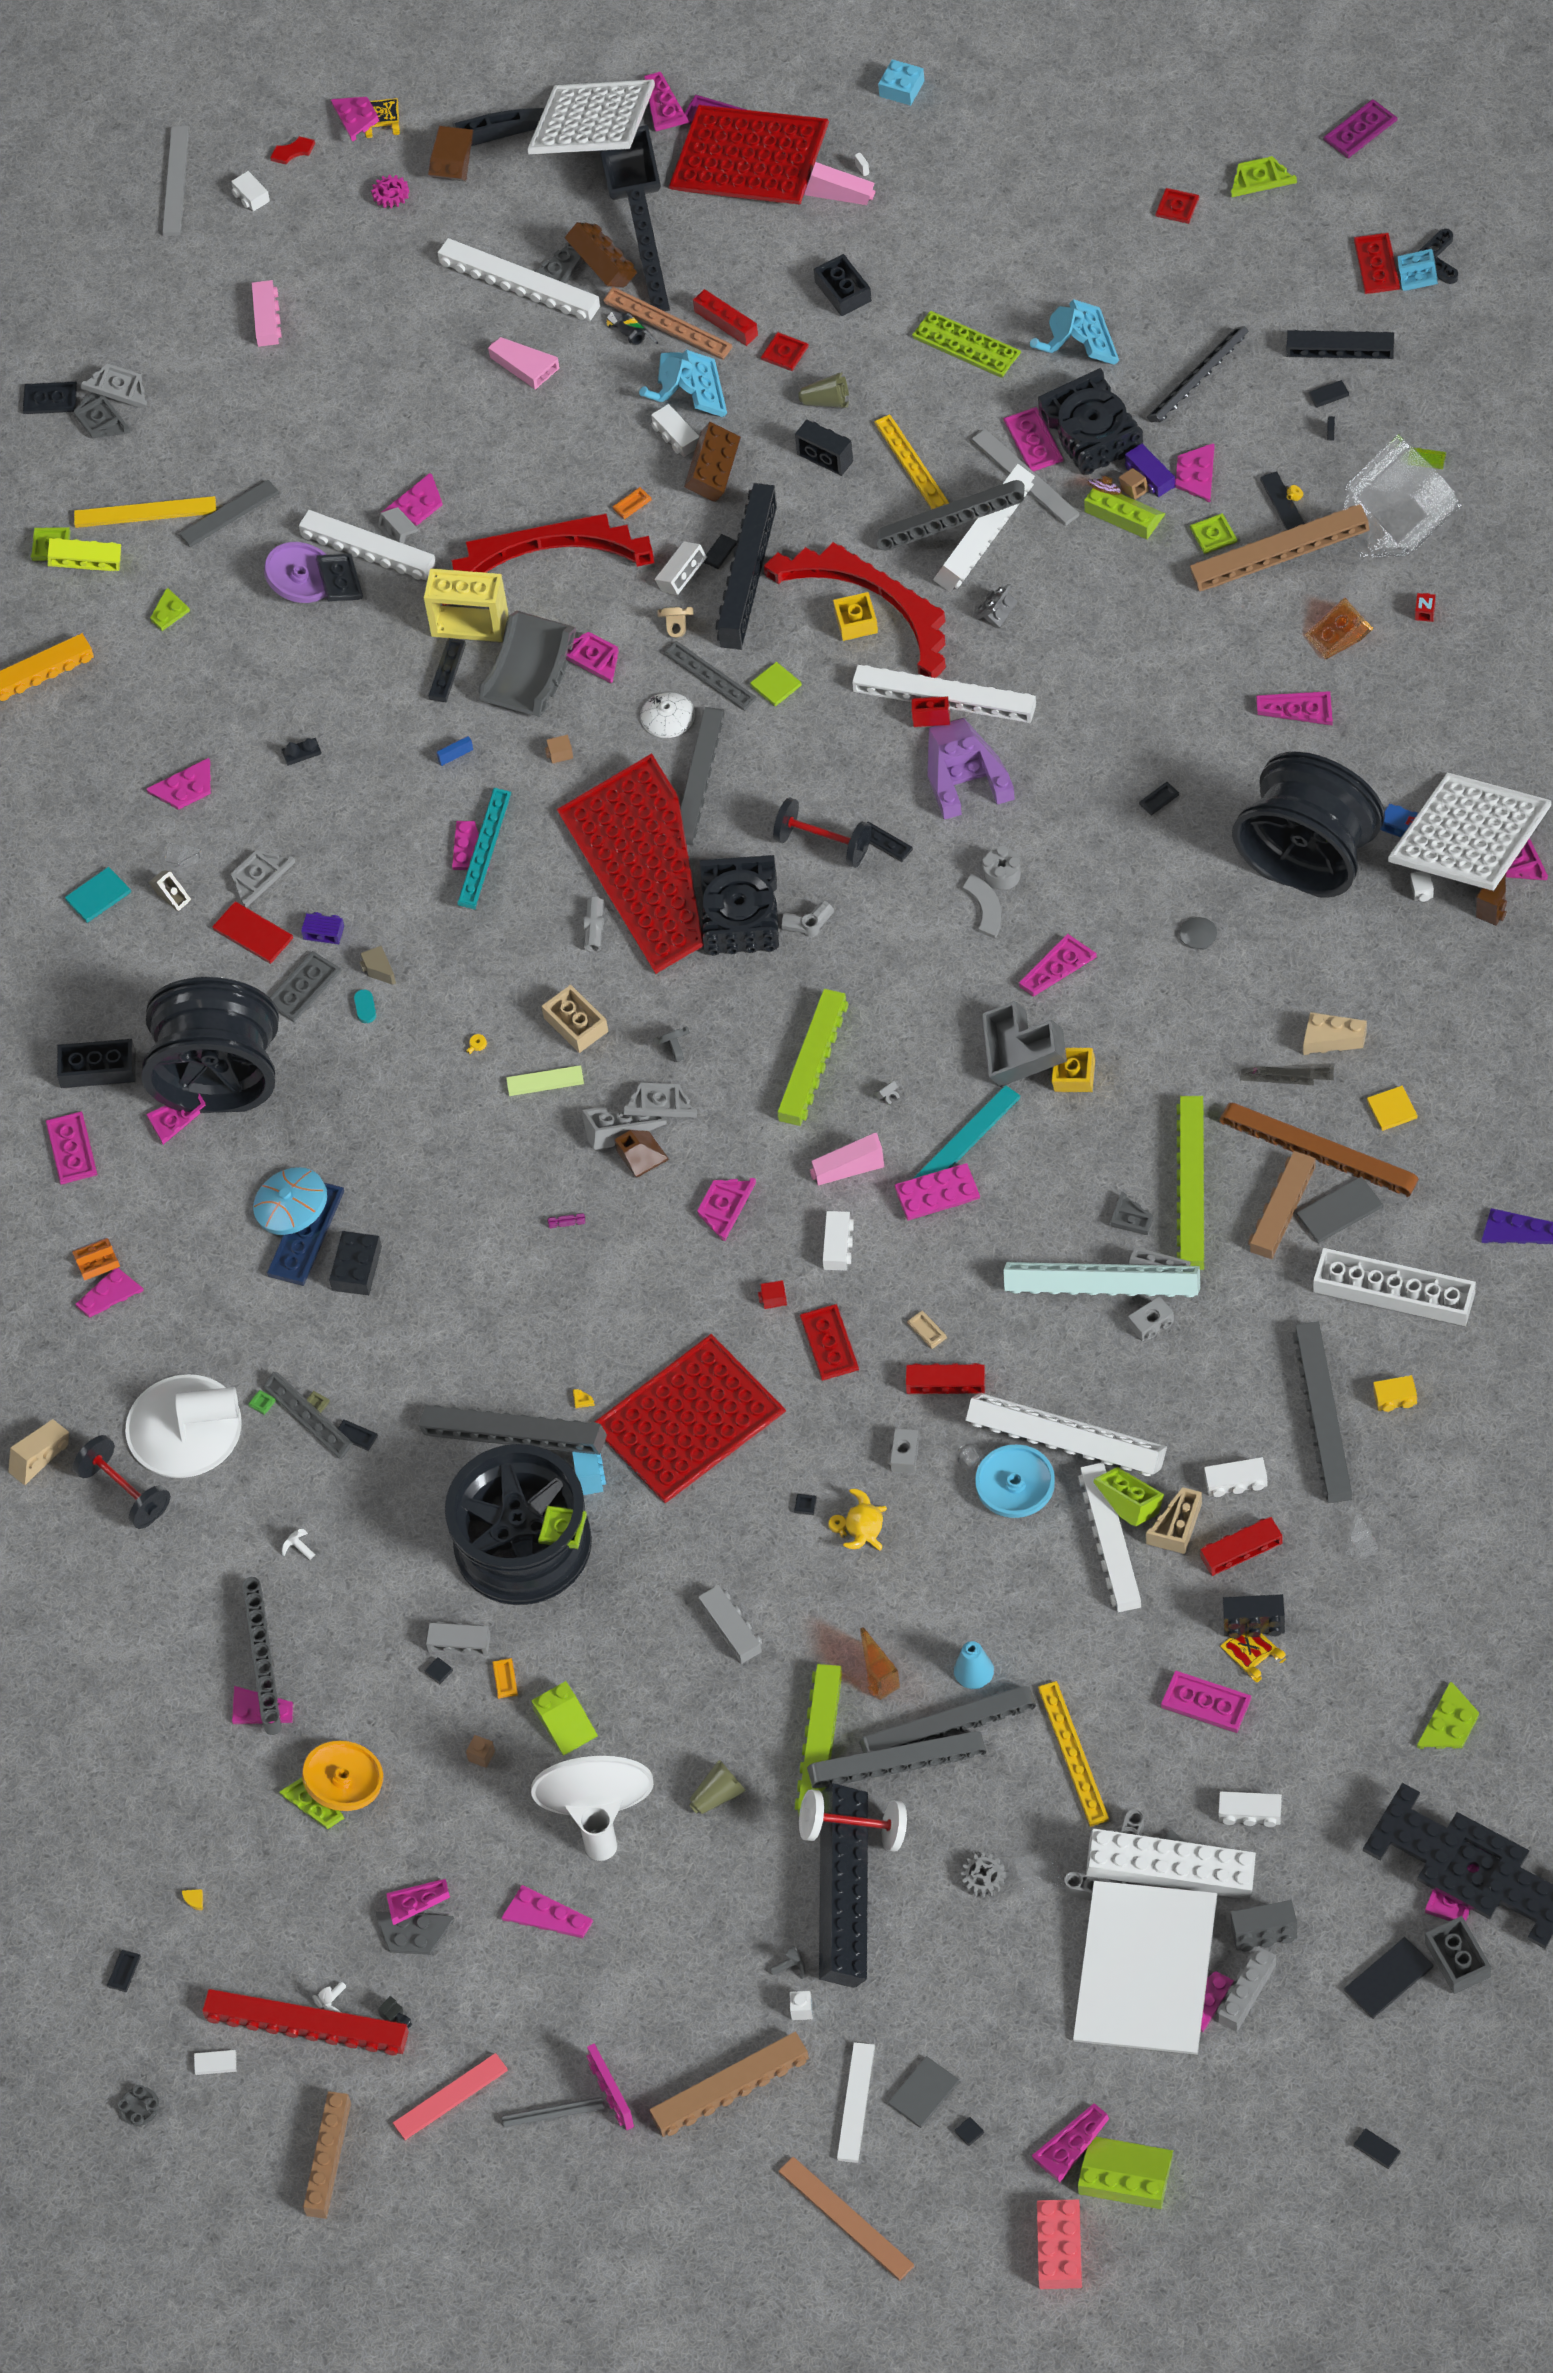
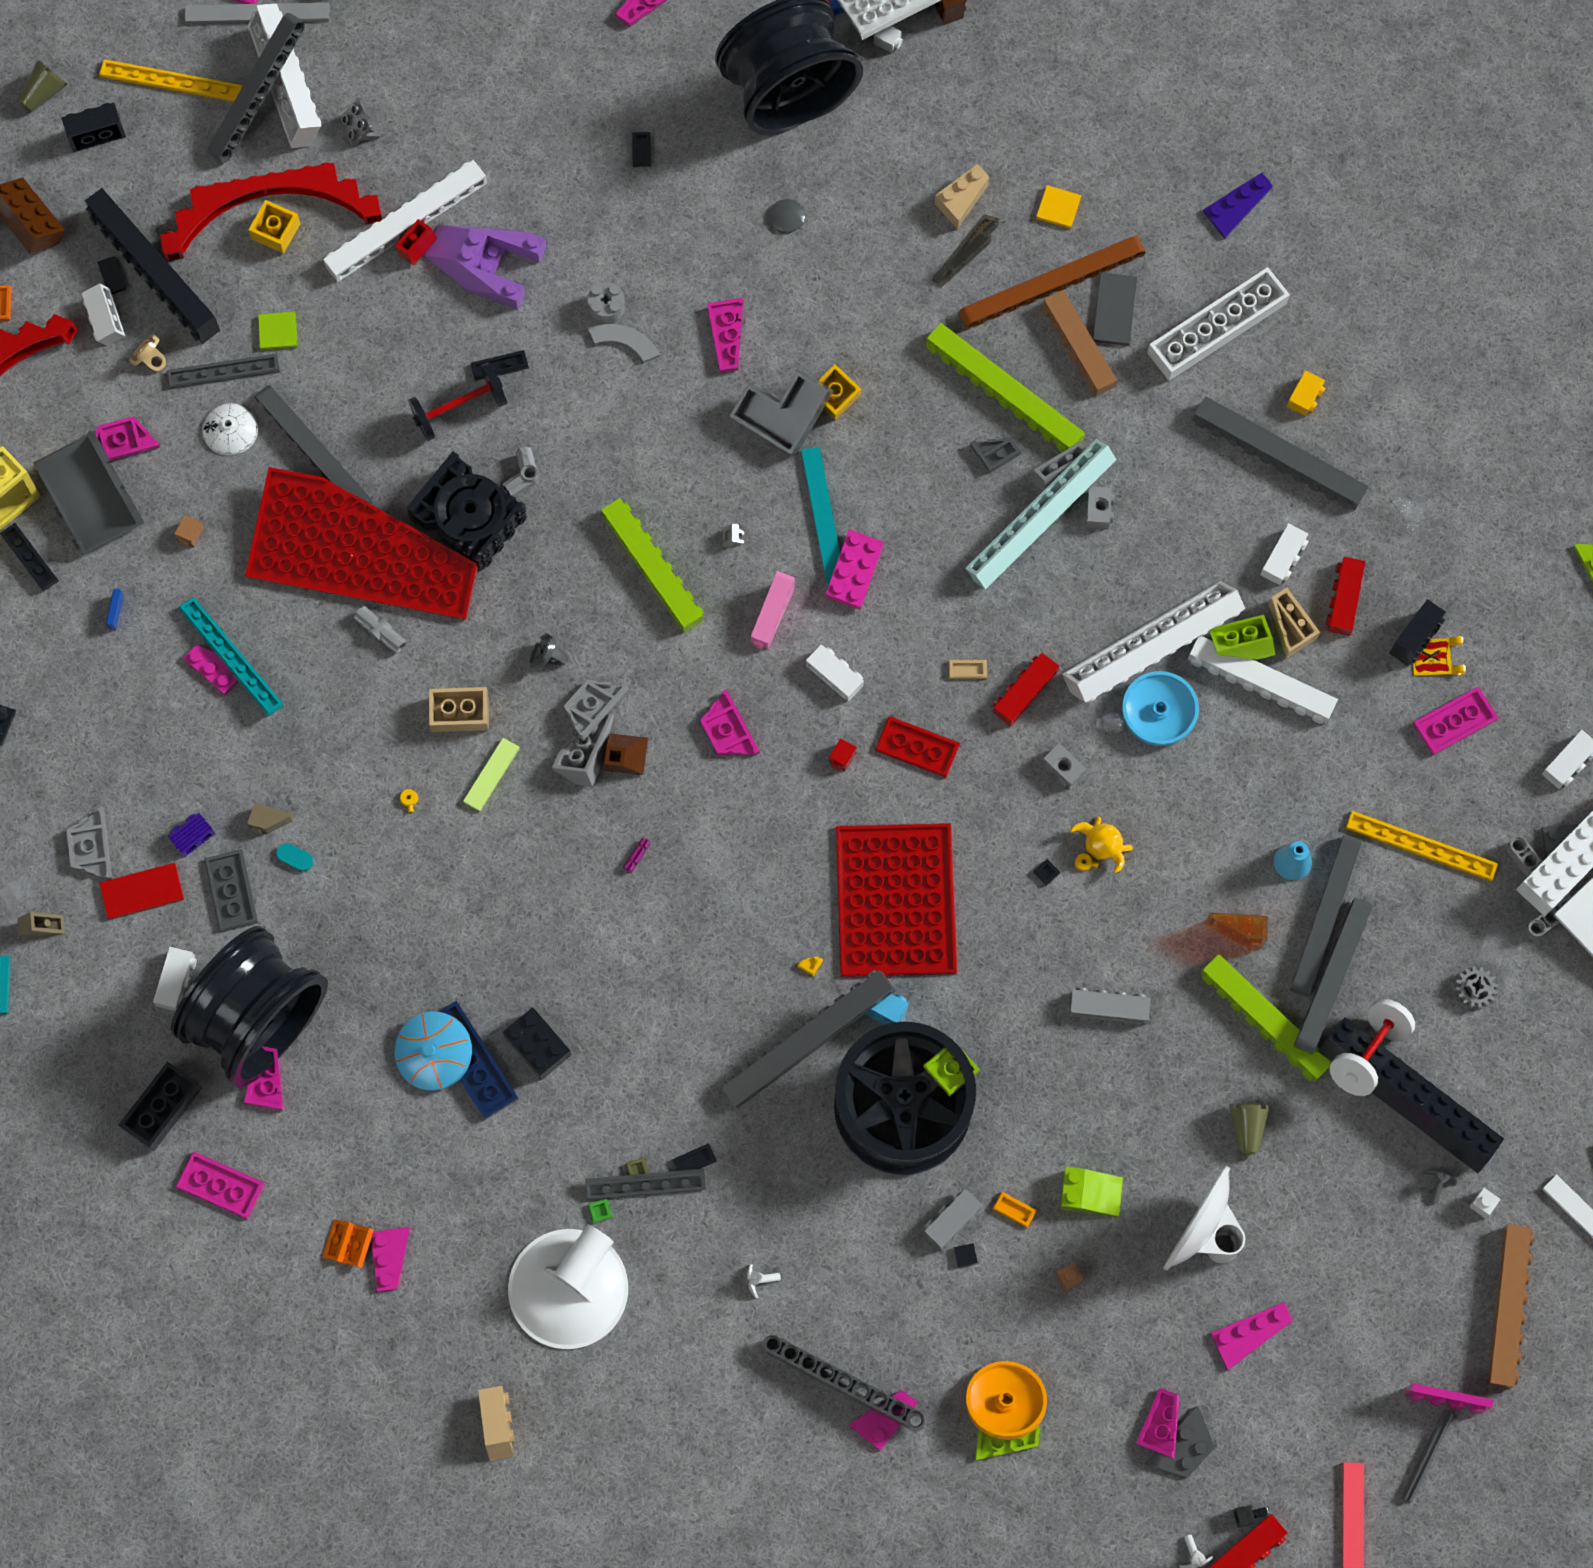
camera: 60 degrees left, 15 degrees up
(147, 1506) = (546, 1382): black piece -> none

